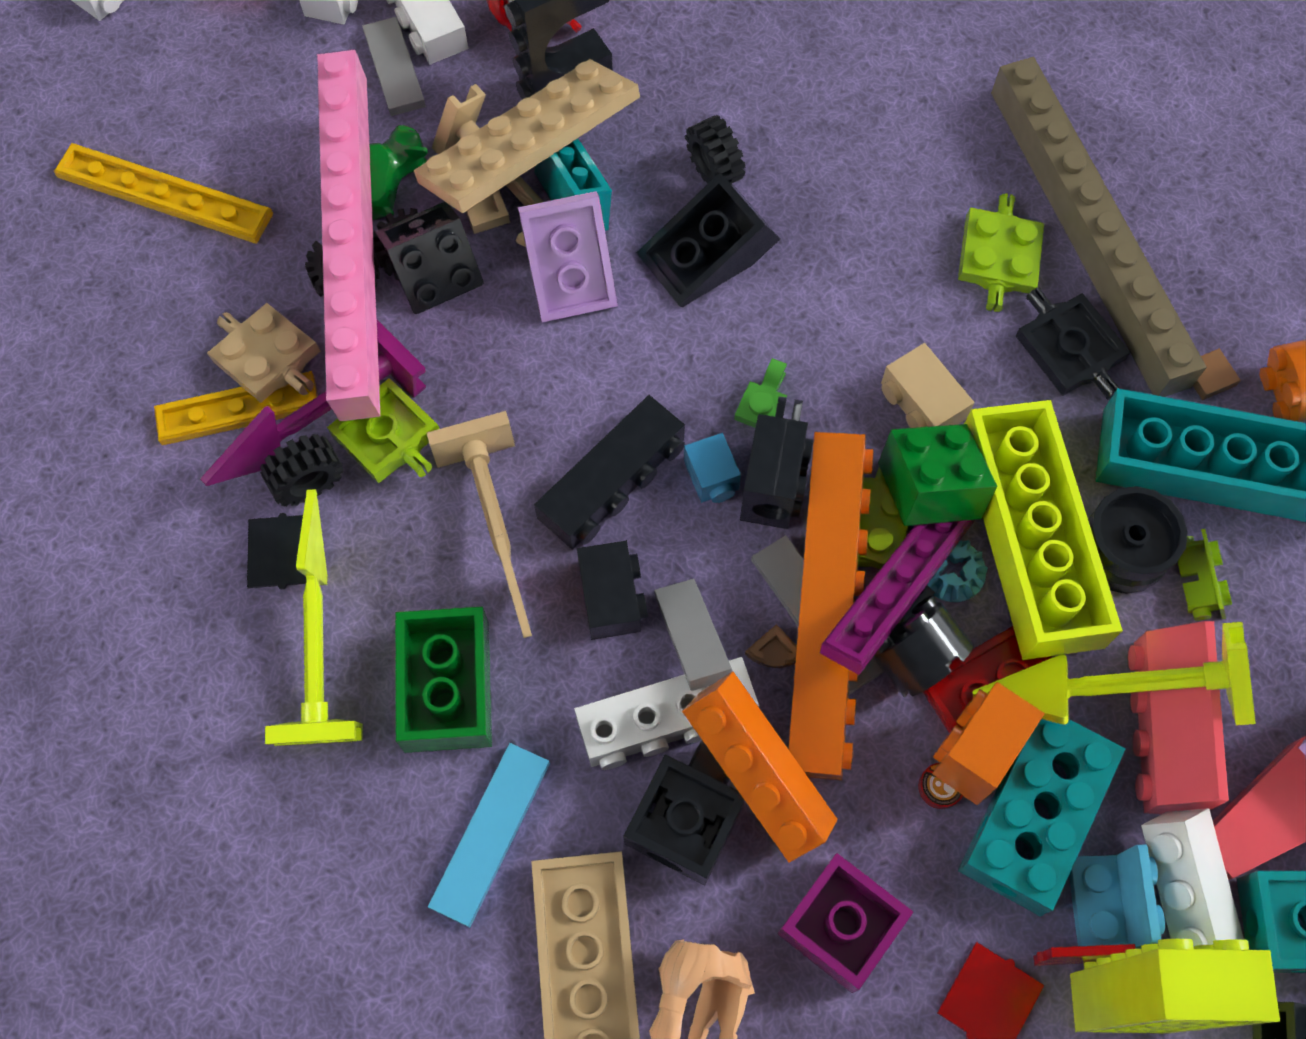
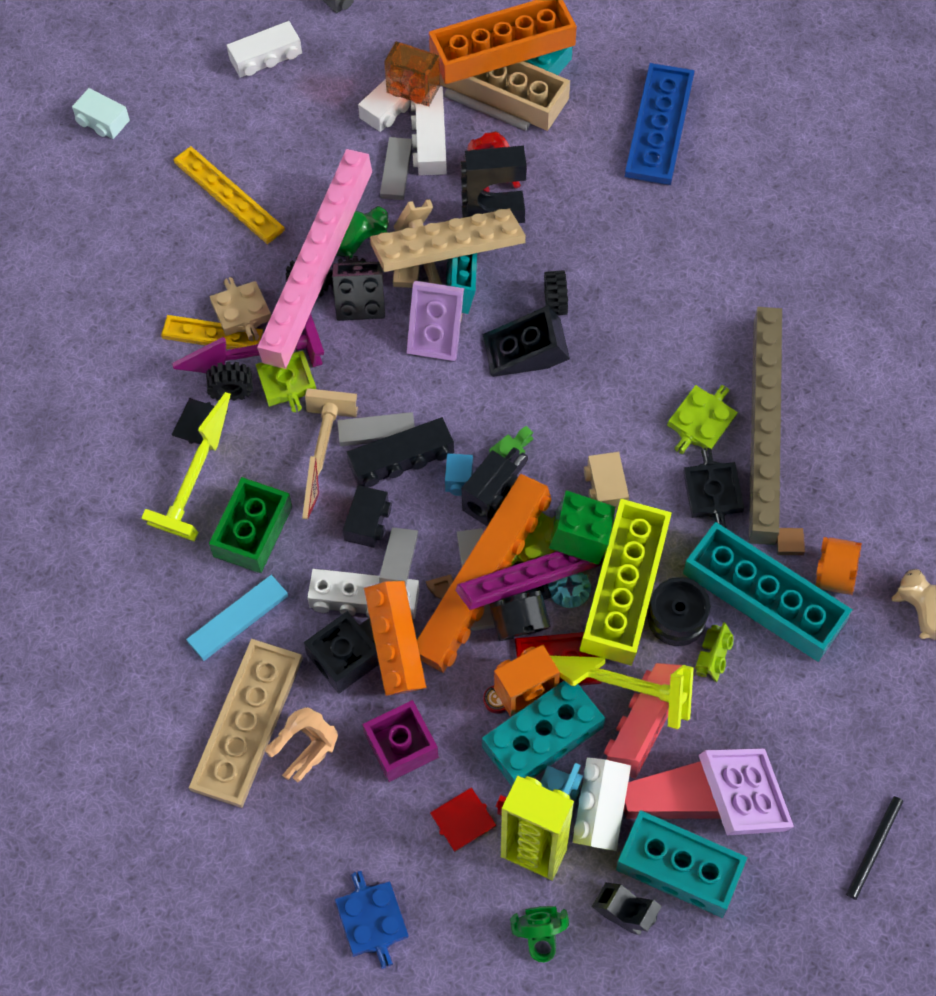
camera: 25 degrees right, 5 degrees down
(551, 452) = (373, 428): none -> light grey tile

